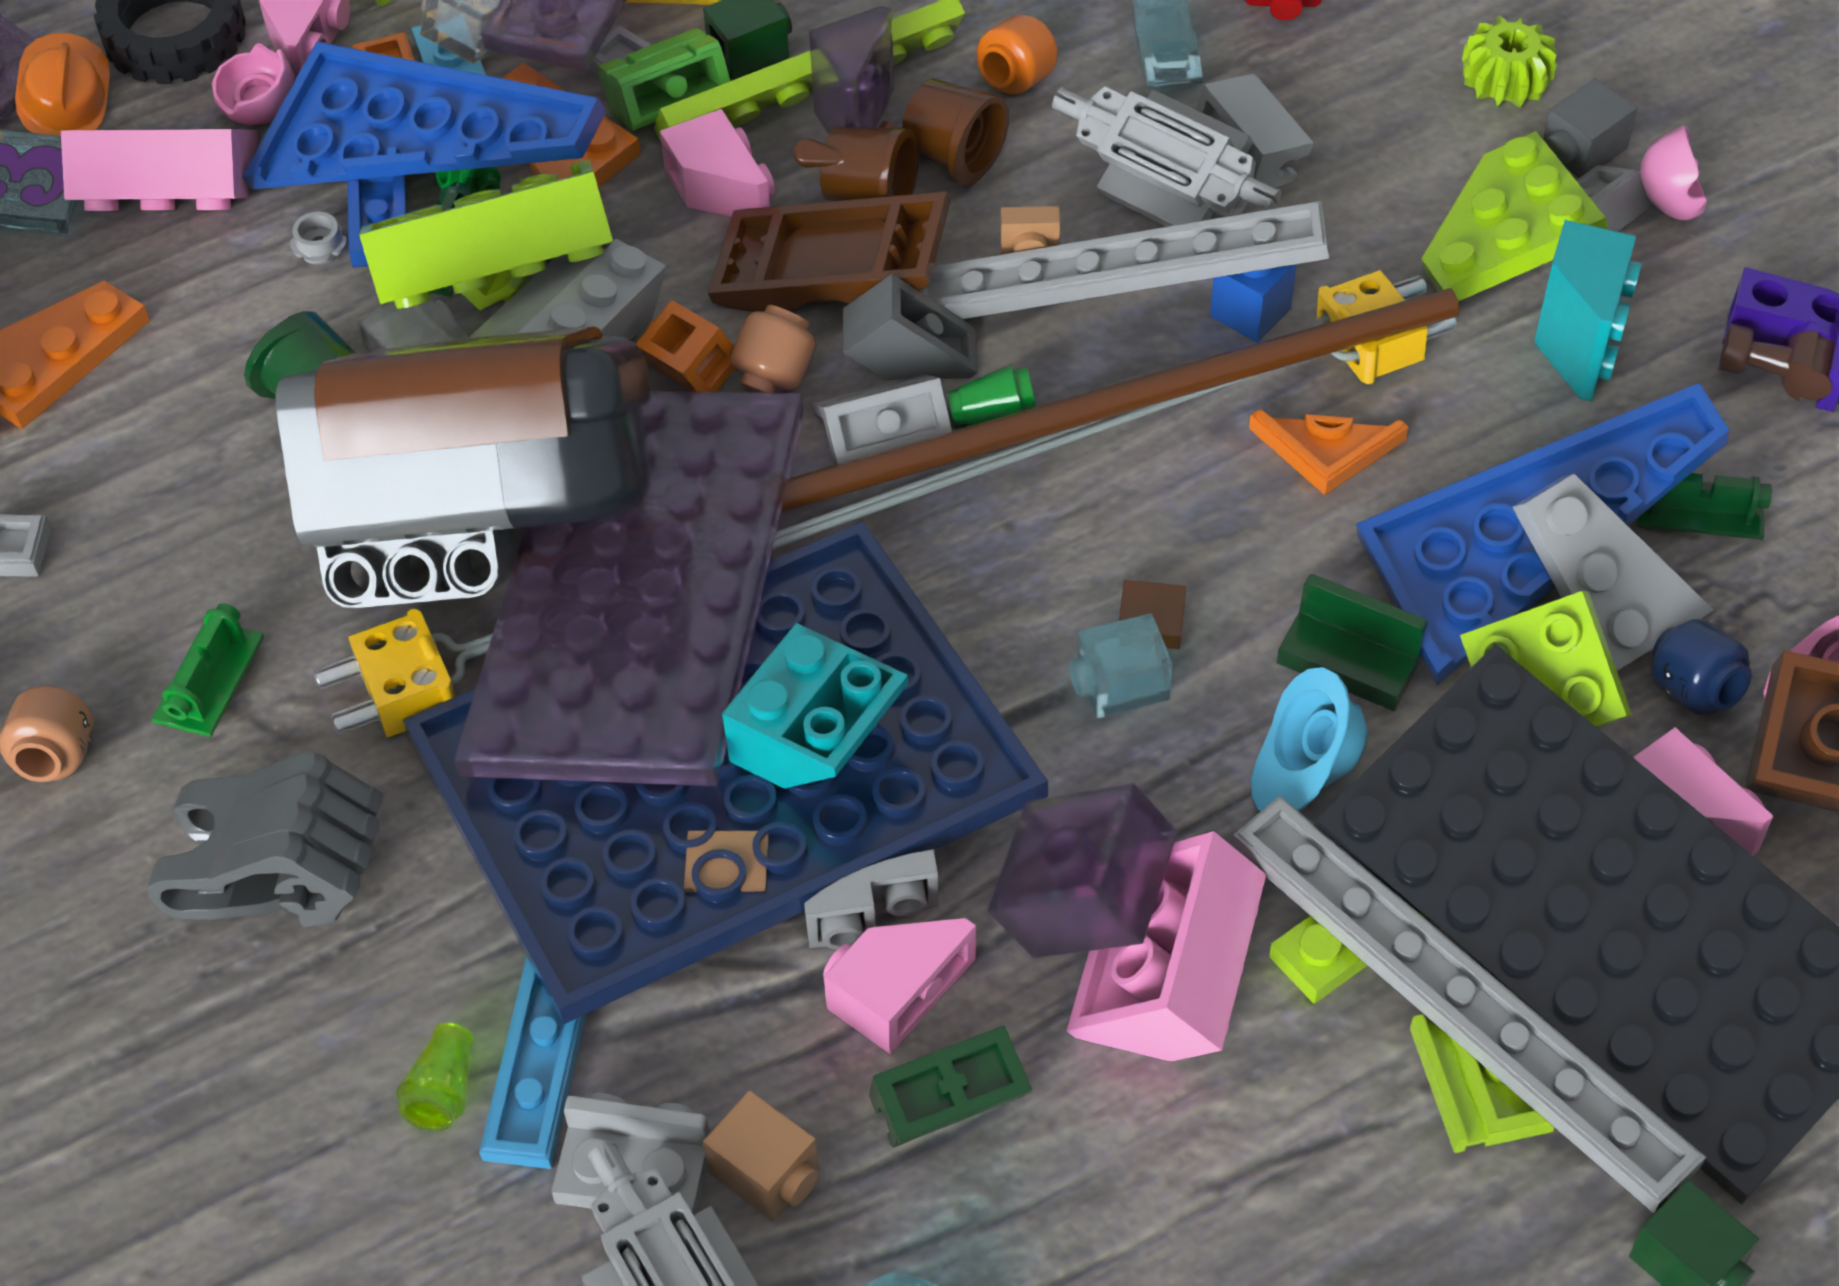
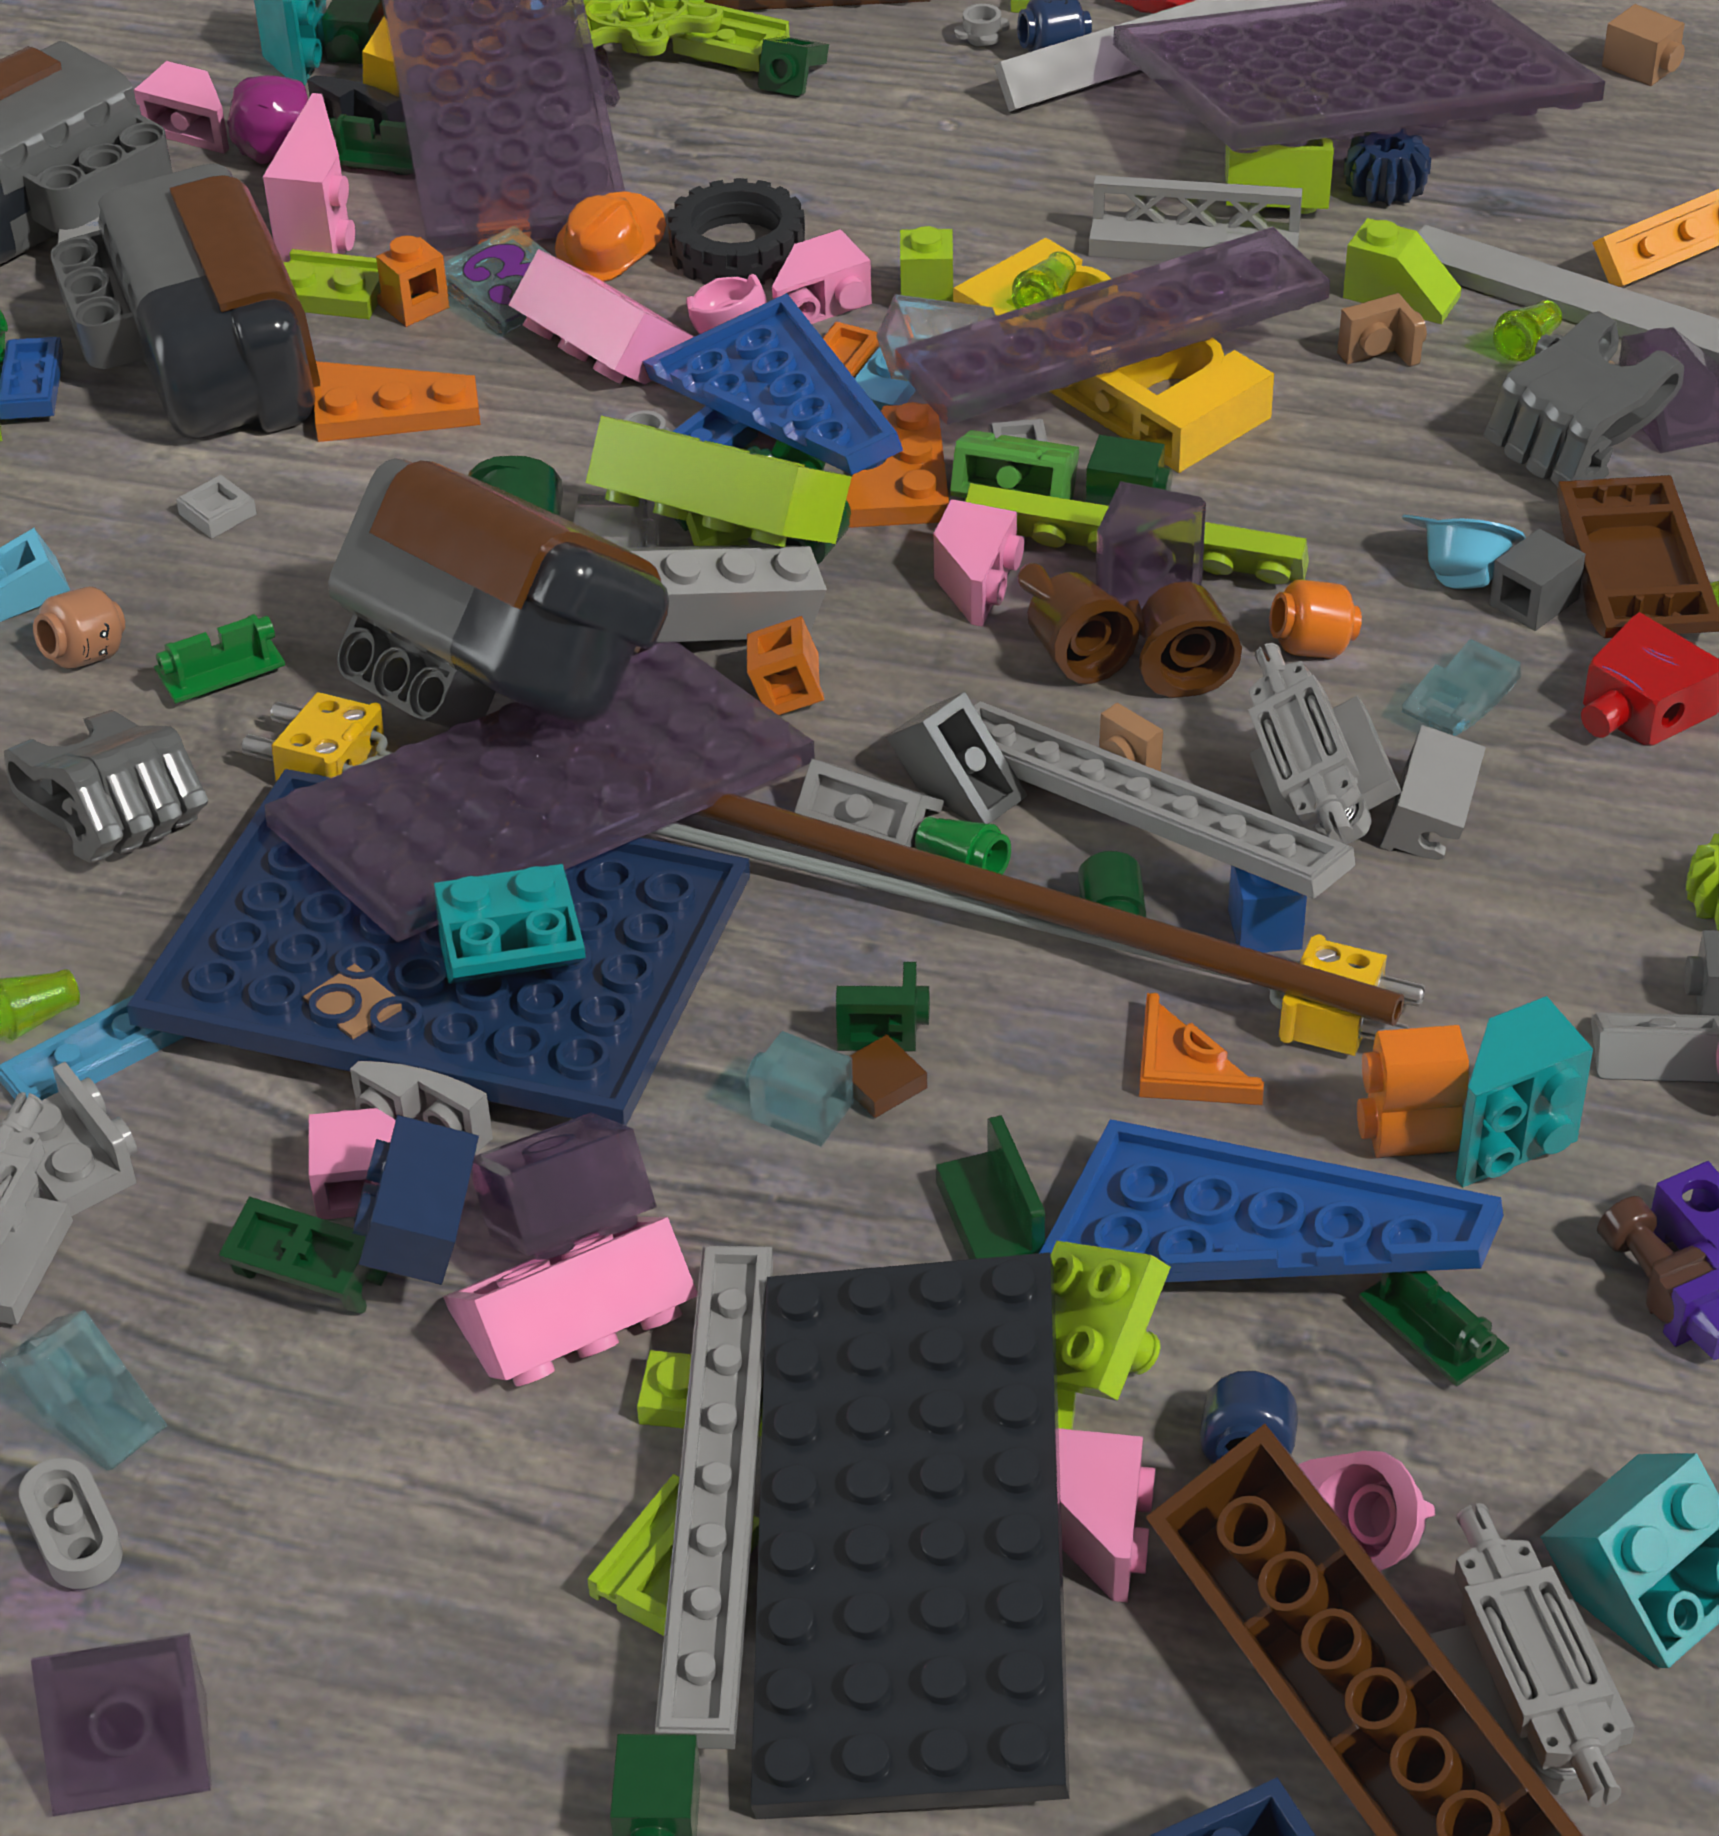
camera: 45 degrees right, 10 degrees down
(762, 1156) = (139, 1202): medium nougat brick -> none
(773, 350) = (841, 704): nougat head -> none
(827, 250) = (969, 651): reddish brown slope -> none
(1018, 971) = (418, 1200): none -> dark blue brick
(1100, 570) = (877, 1011): none -> dark green bracket
(1136, 351) = (1113, 881): none -> dark green brick
(1311, 741) = (874, 1237): medium azure piece -> none
(1507, 218) = (1597, 987): lime plate -> none
(1529, 351) = (1414, 1091): none -> orange brick
(1596, 552) = (1246, 1288): light grey wing -> none

